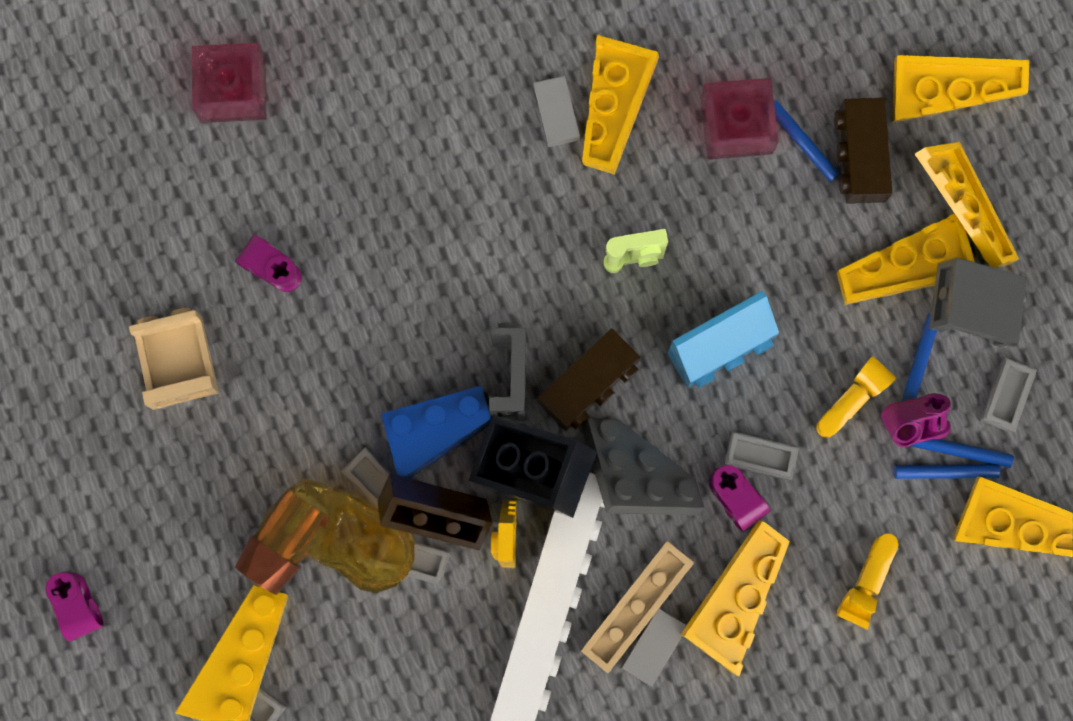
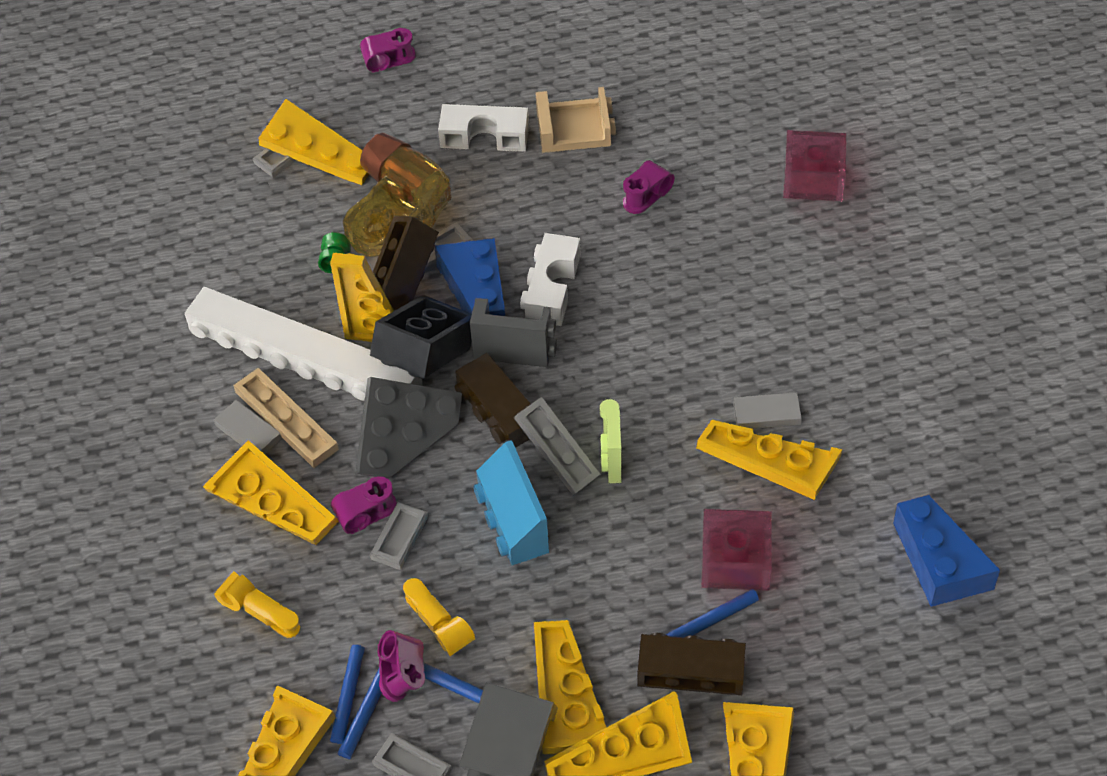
camera: 100 degrees right, 25 degrees down
(189, 433) = (463, 122): none -> white arch
(397, 601) = (331, 244): none -> green wheel
(444, 355) = (554, 259): none -> white arch
(644, 306) = (557, 446): none -> light grey plate

